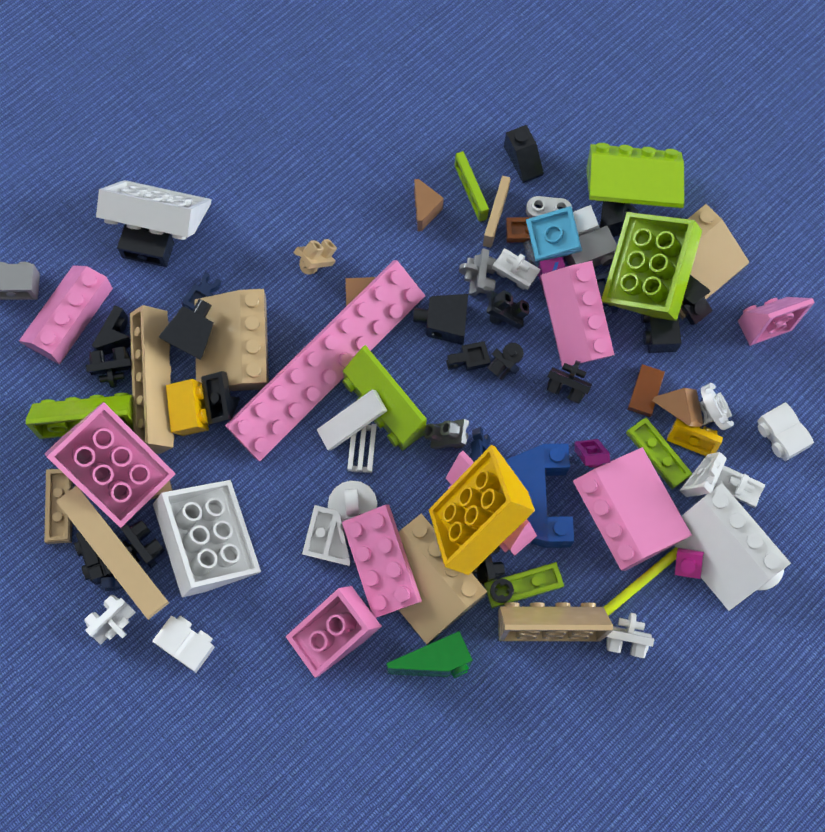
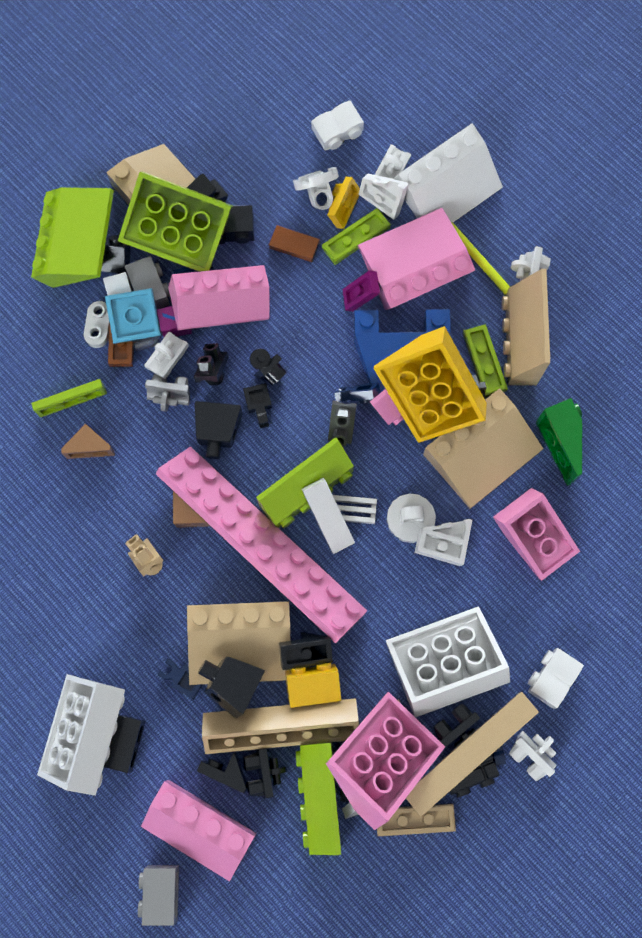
camera: 85 degrees left, 5 degrees up
(381, 561) = (470, 487): bright pink plate -> none
(496, 211) = (97, 372): tan tile -> none
(501, 582) = (498, 370): black bush -> none
(523, 153) = (34, 345): black slope -> none
(559, 377) = (283, 308): black hips -> none
(683, 405) = (315, 208): medium nougat slope -> none
(689, 563) = (463, 215): dark pink plate -> none
(773, 318) = (227, 122): bright pink slope -> none

